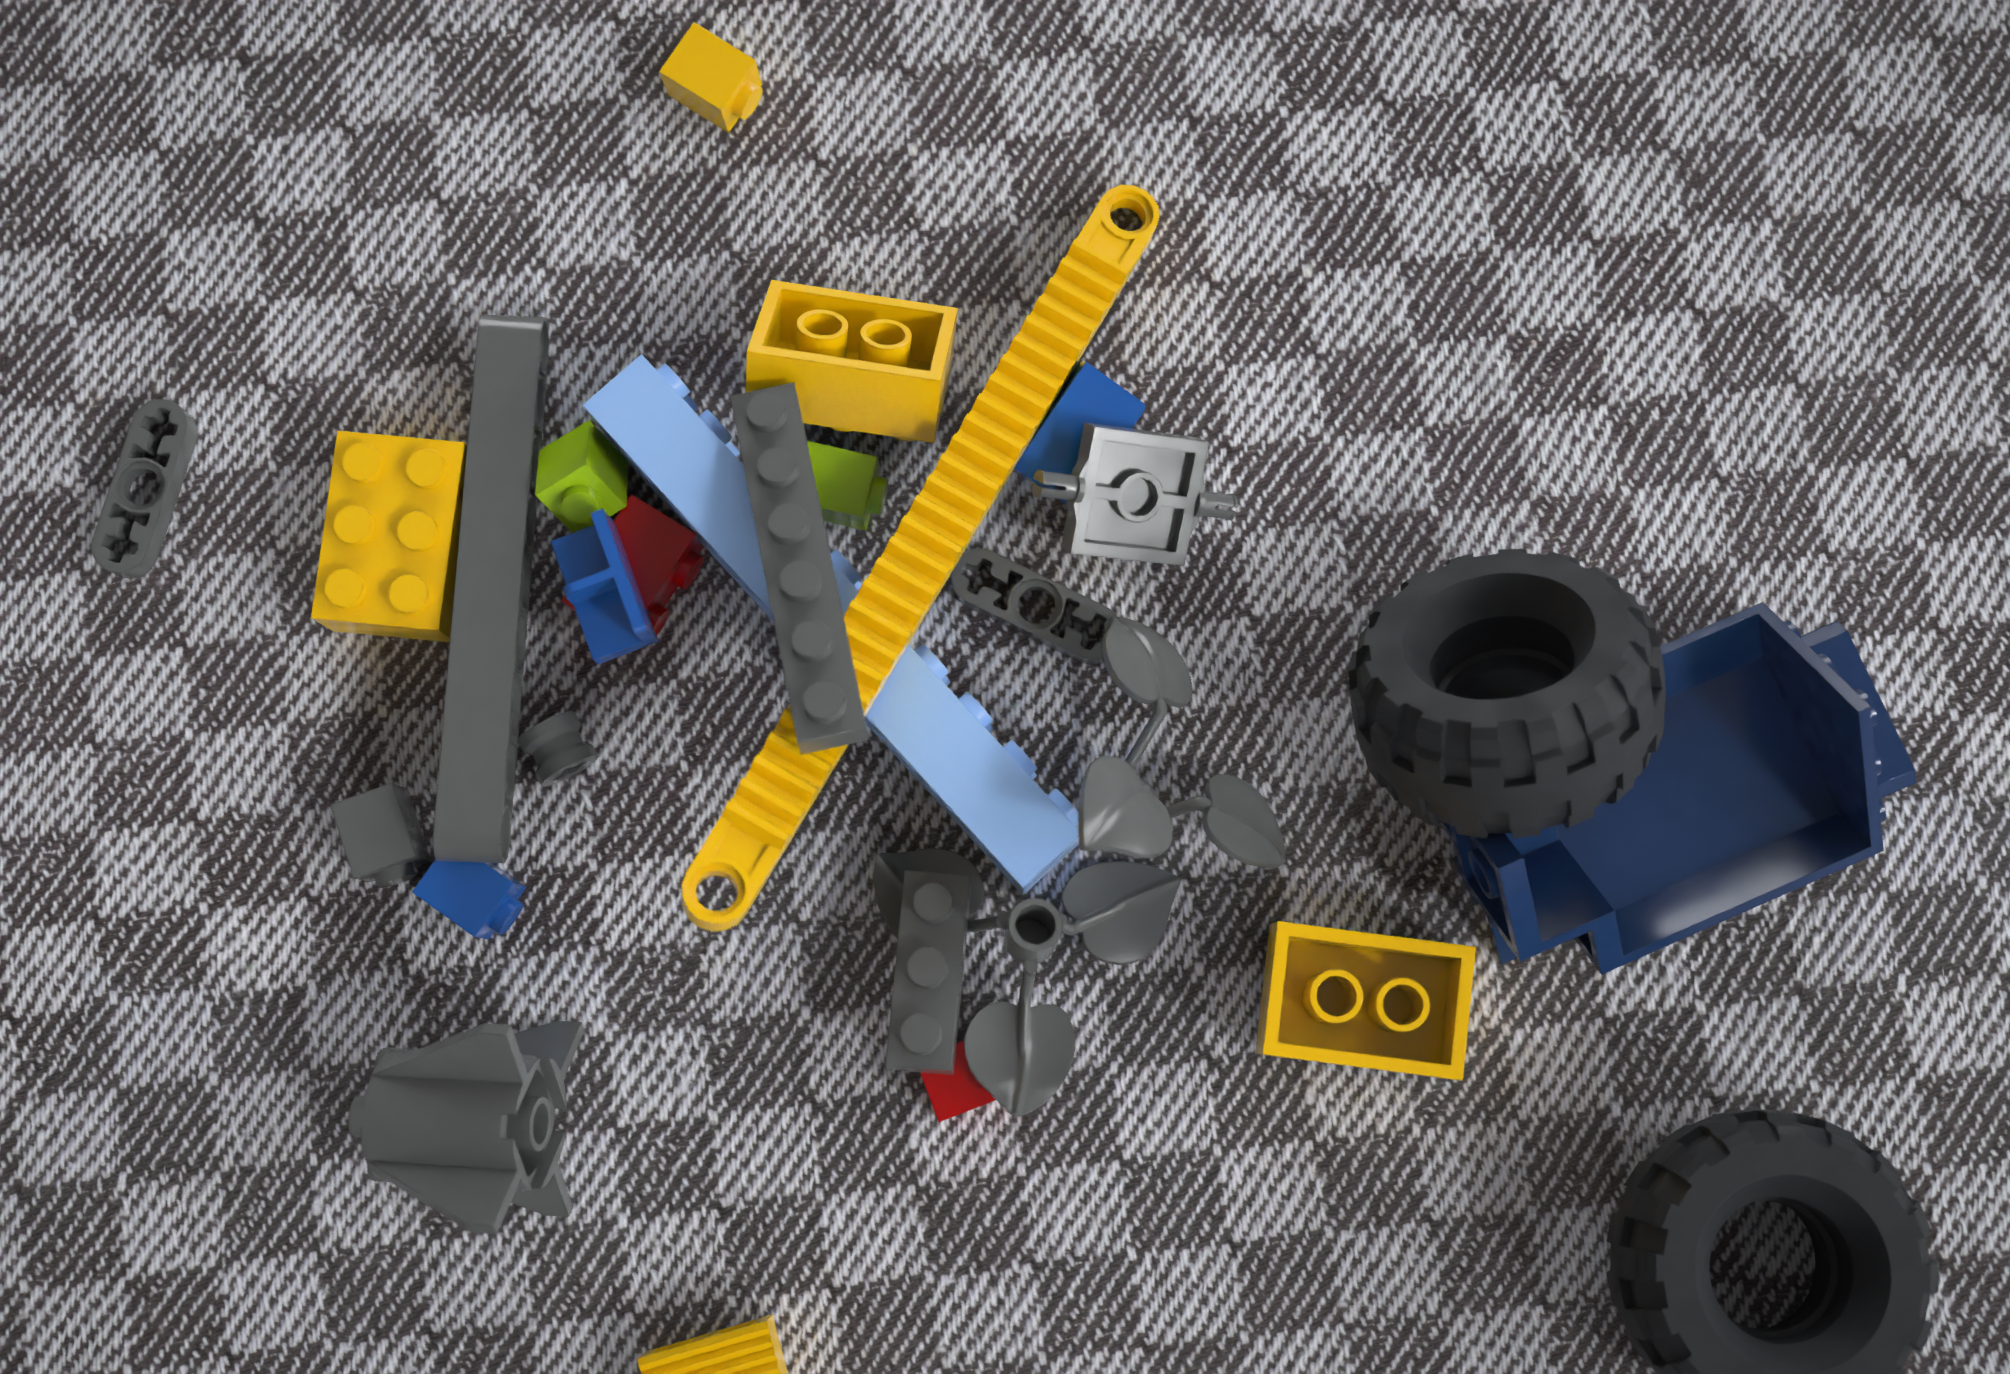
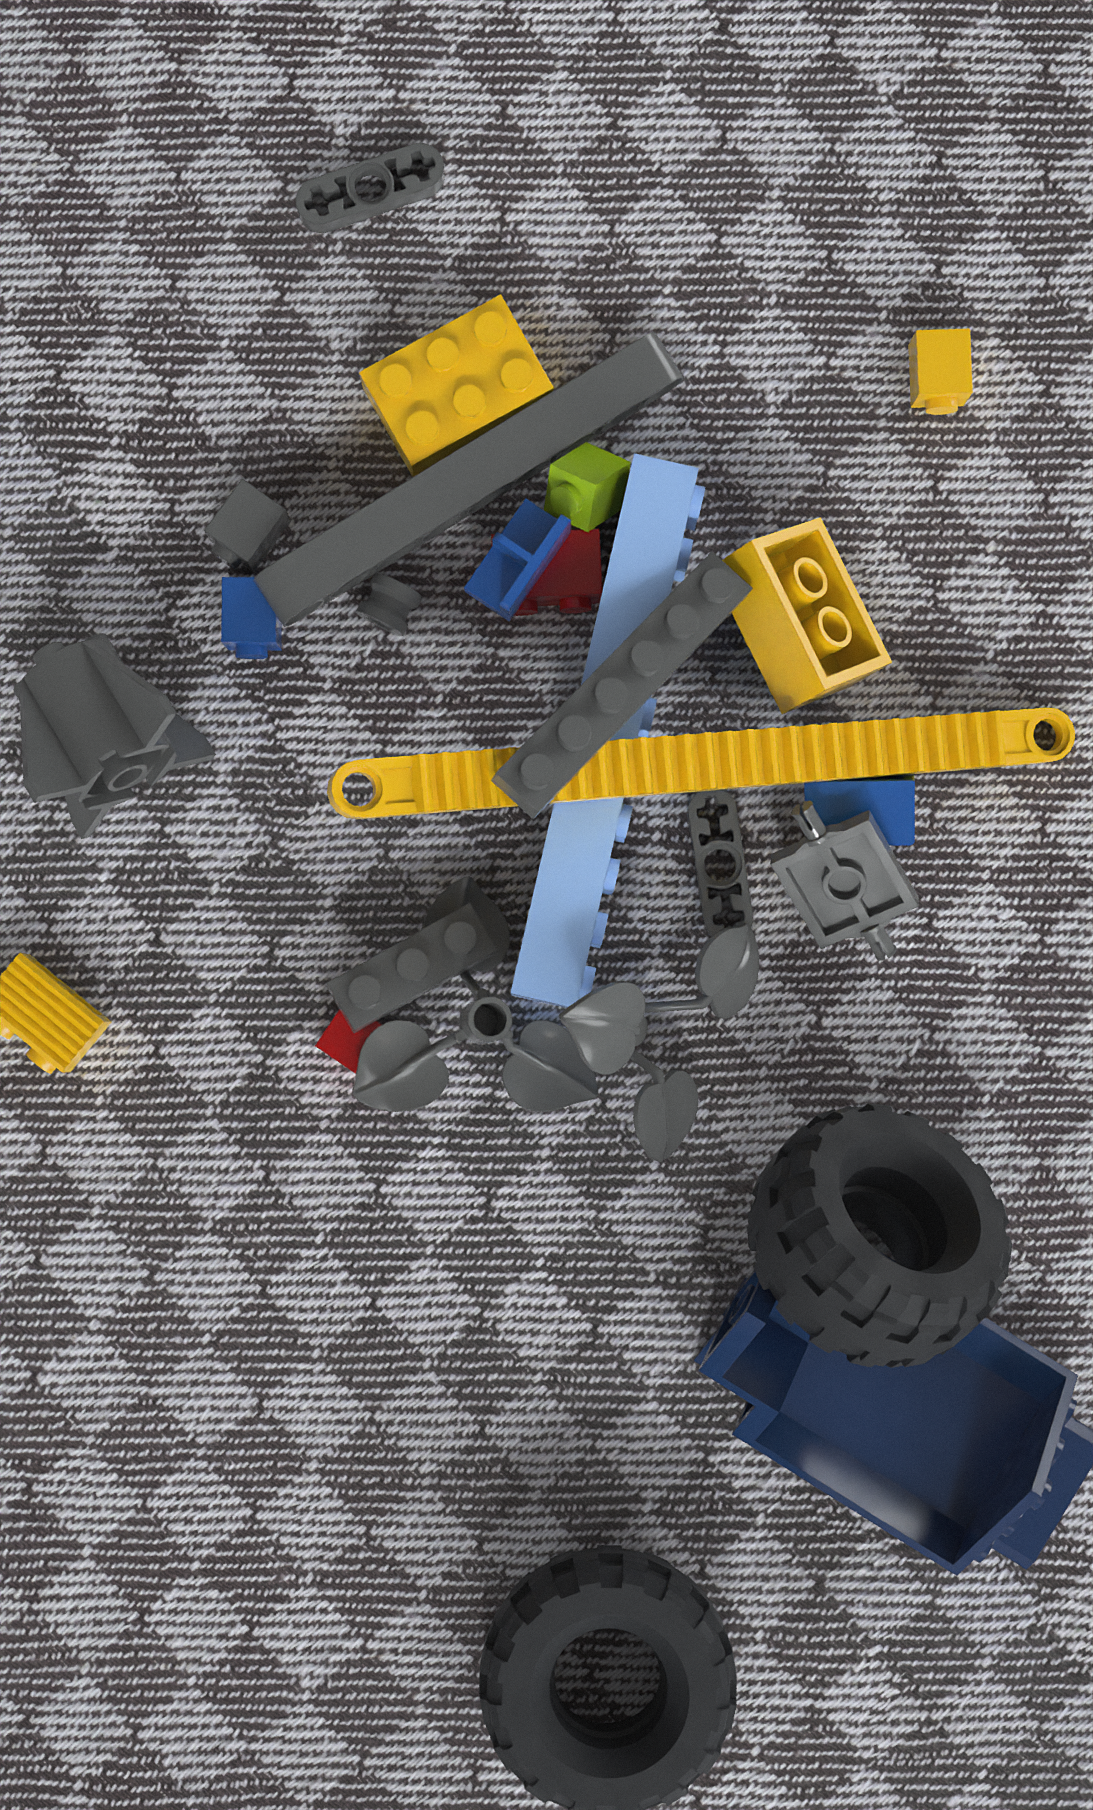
camera: 50 degrees right, 5 degrees up
(847, 485) = (712, 673): lime brick -> none
(1366, 1000) = (599, 1282): yellow brick -> none

